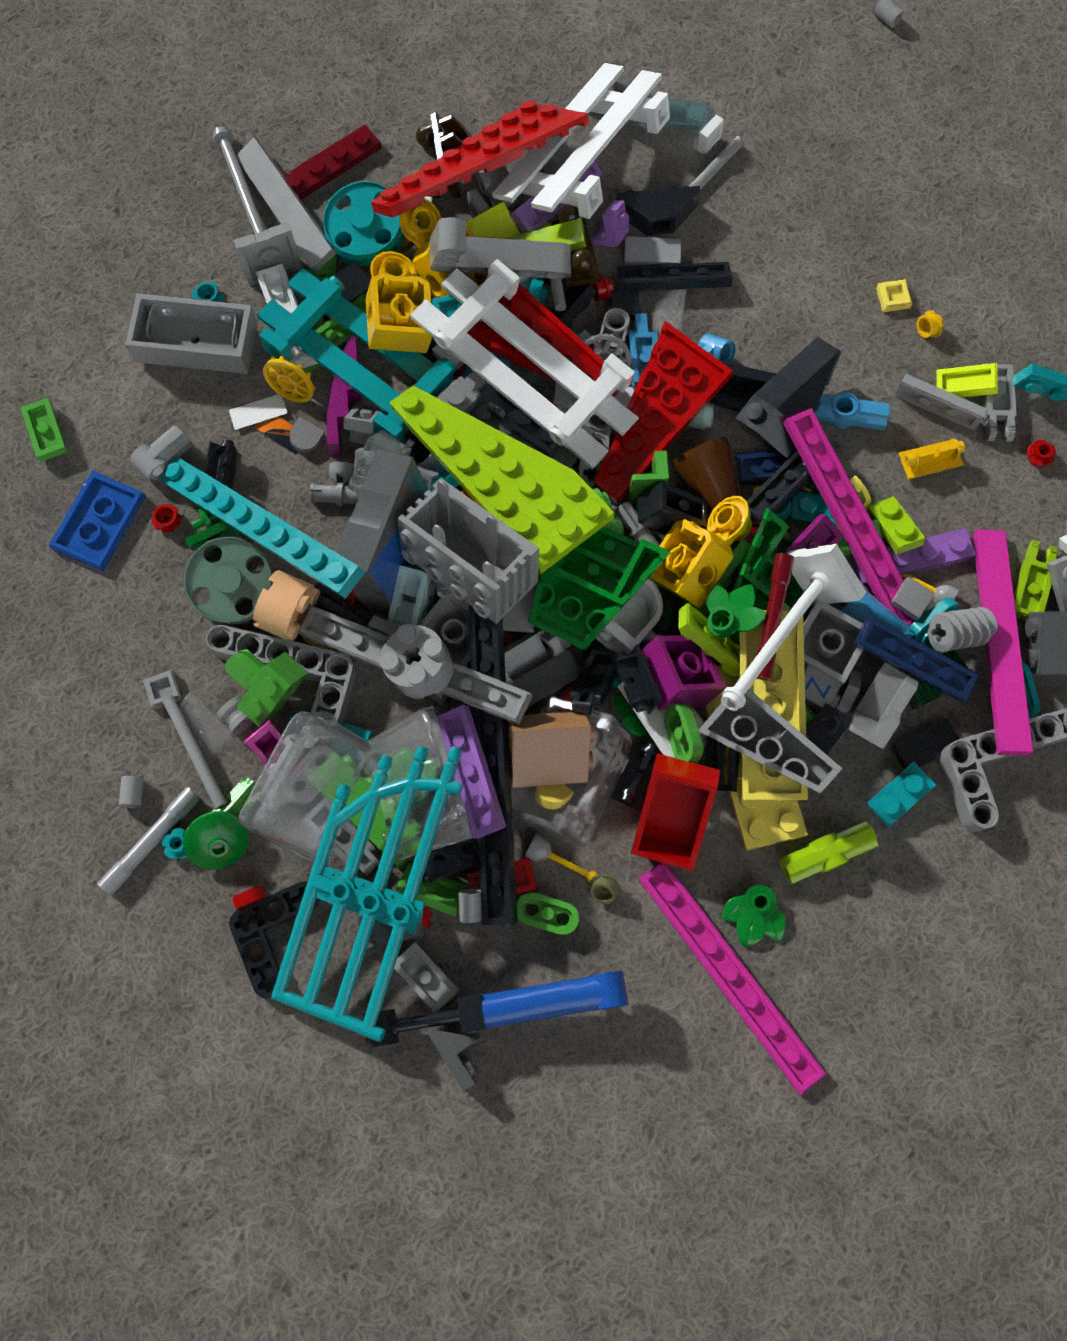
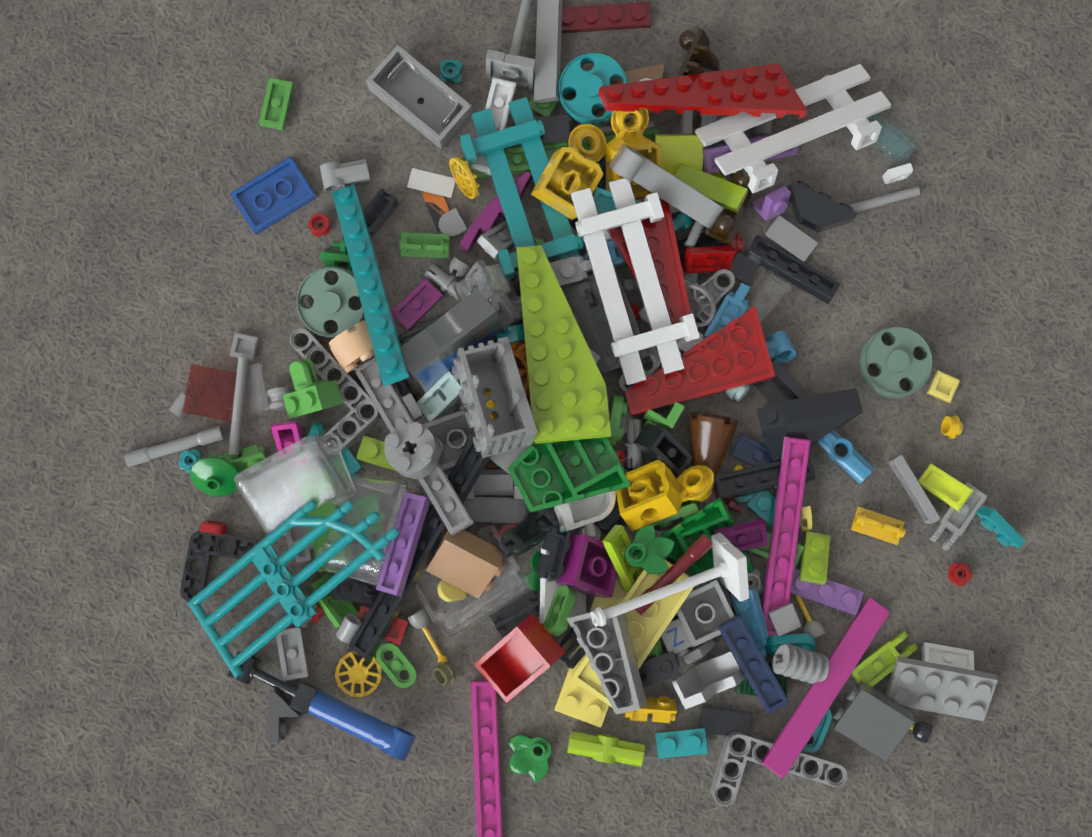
camera: 30 degrees right, 10 degrees up
(154, 758) = (210, 393): none -> clear red tile
(291, 471) = (425, 245): none -> bright green hinge
(324, 523) = (417, 304): none -> magenta plate
(383, 706) = (373, 452): none -> lime plate
(512, 952) = (357, 675): none -> yellow wheel
(587, 309) = (708, 259): none -> red plate
(834, 298) = (895, 362): none -> sand green piece
(855, 774) = (662, 710): none -> yellow hinge

